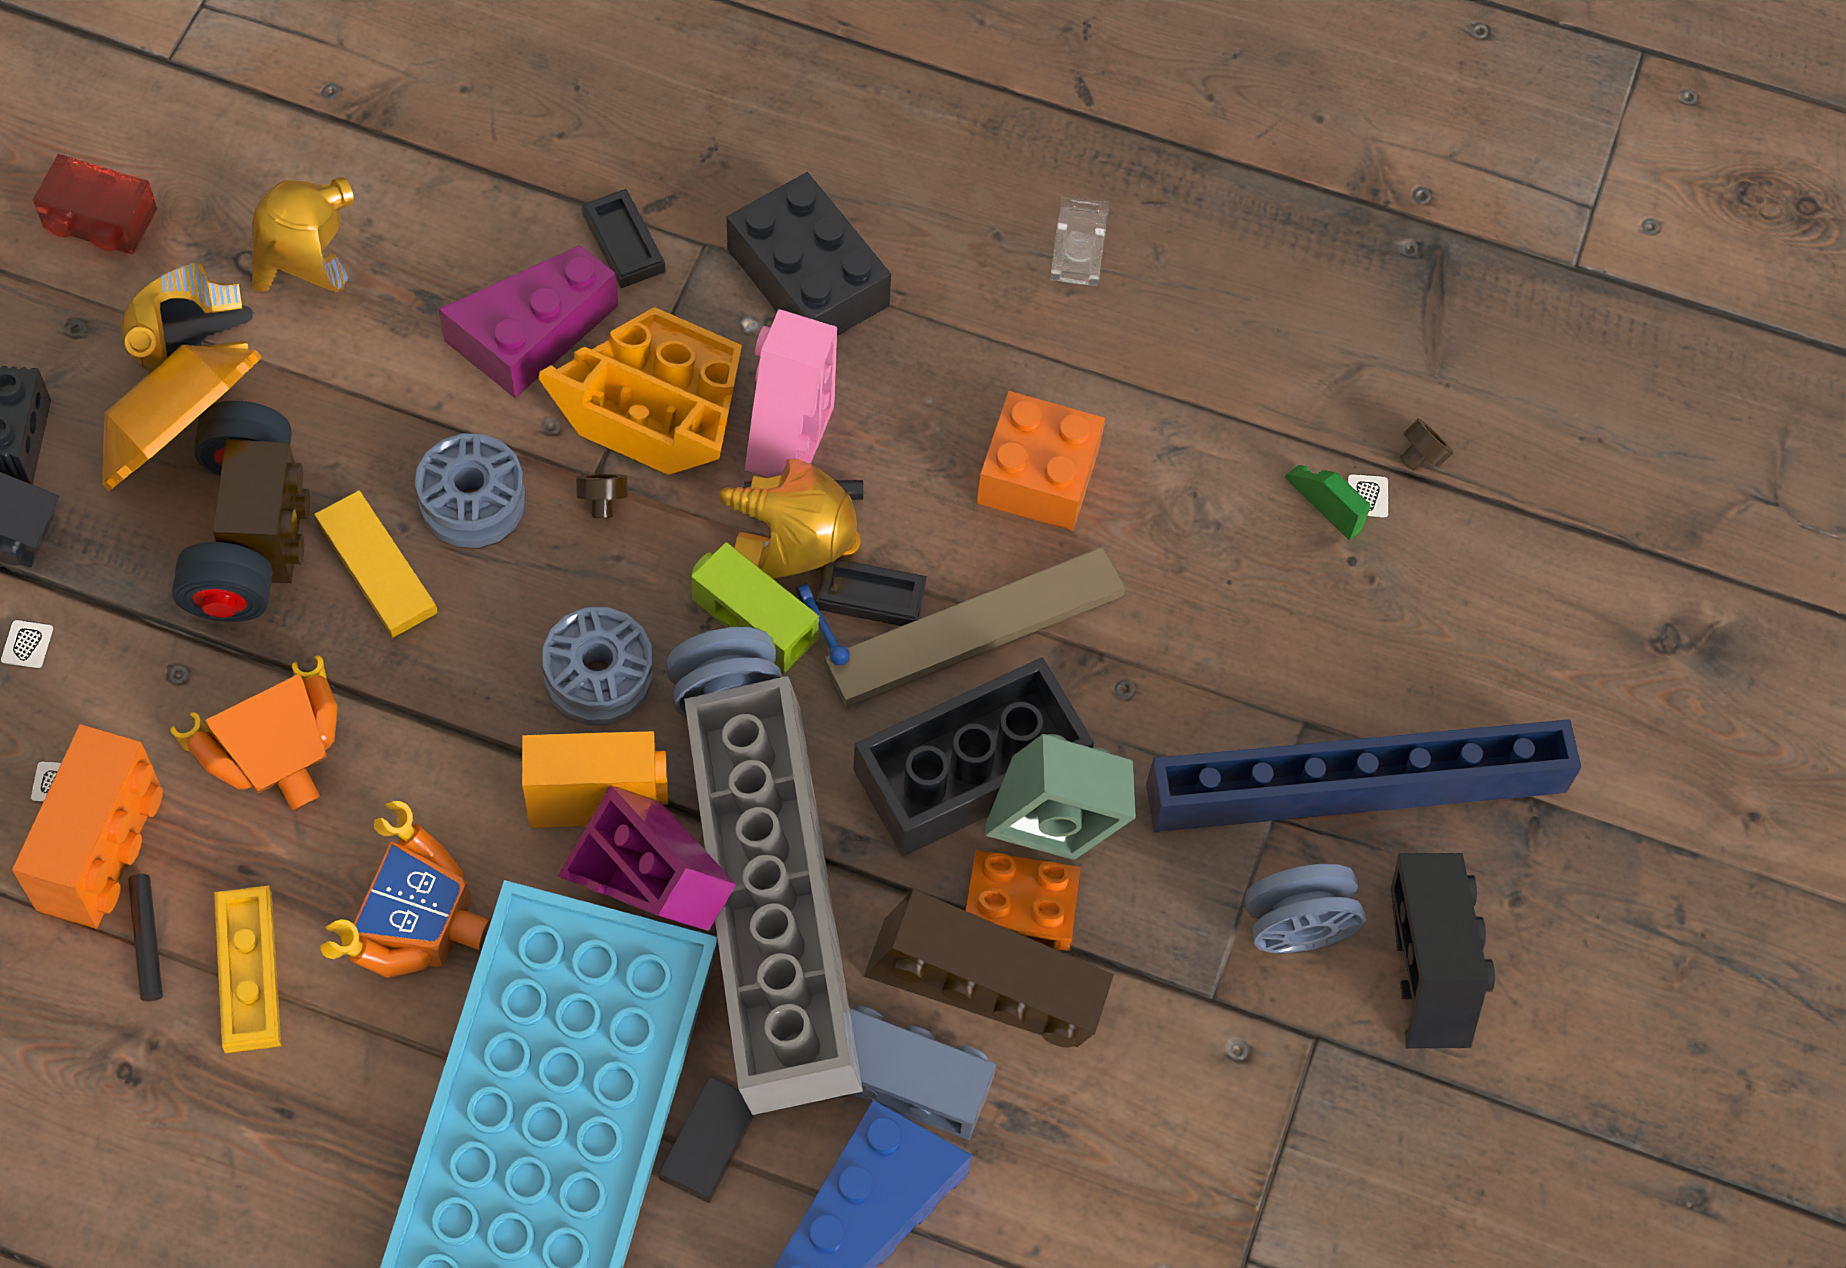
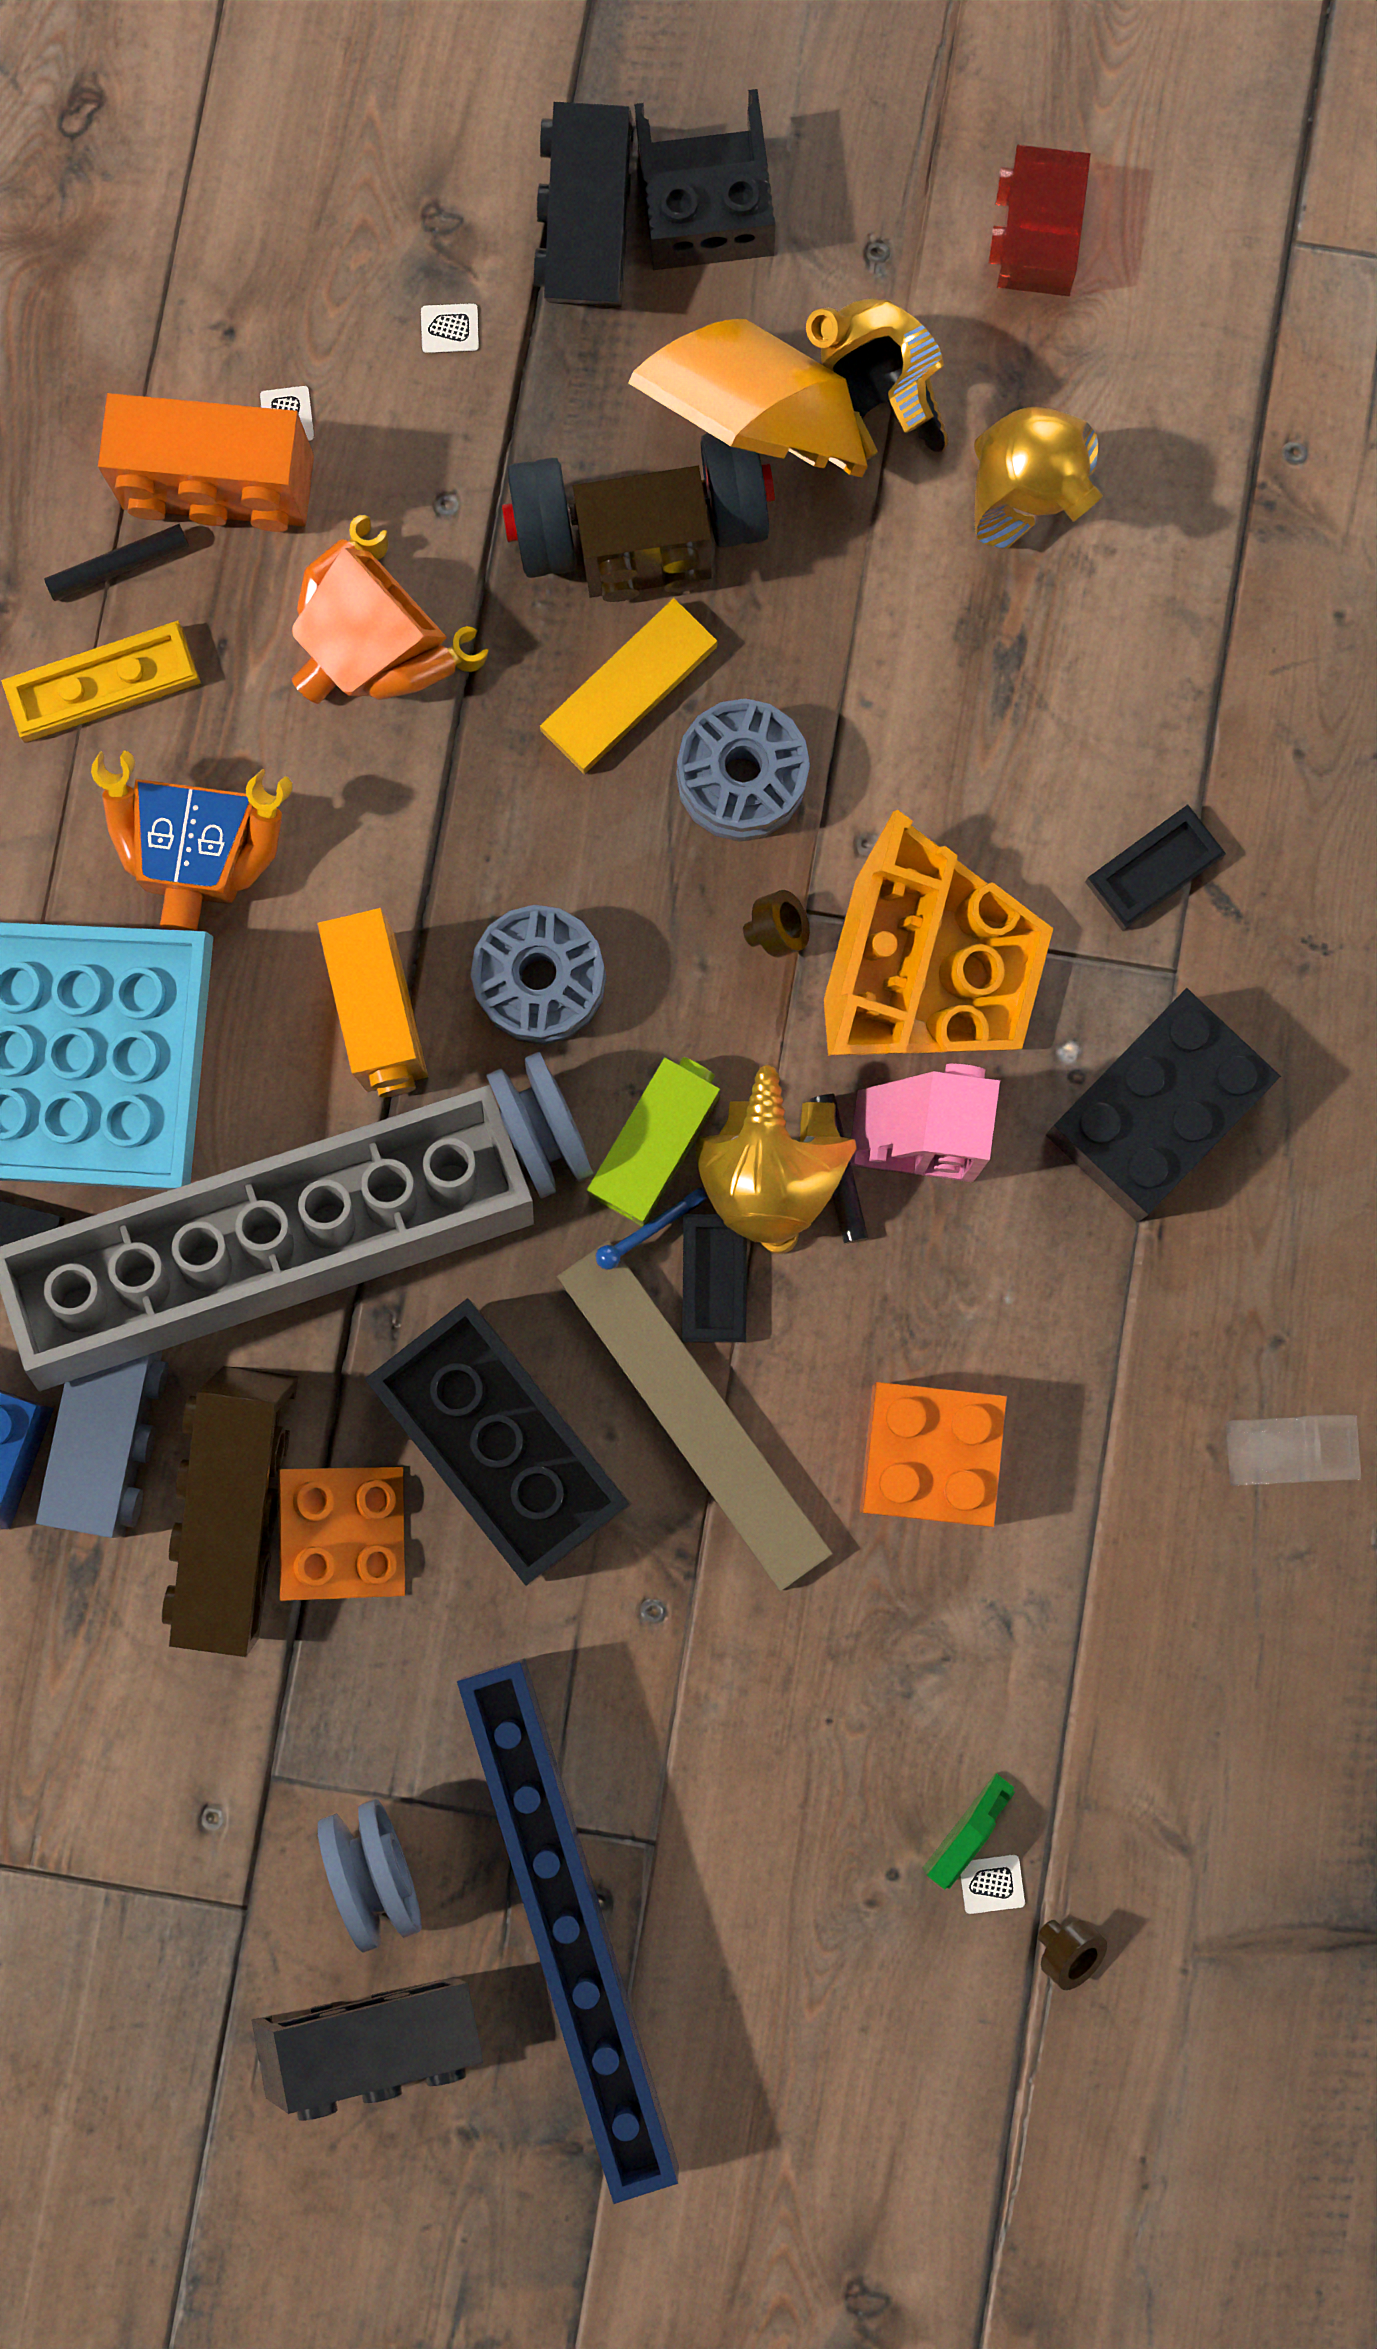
camera: 90 degrees right, 20 degrees up
(531, 317) = (997, 783): magenta wedge -> none
(648, 861) = (254, 1093): magenta wedge -> none
(1062, 797) = (449, 1563): sand green slope -> none

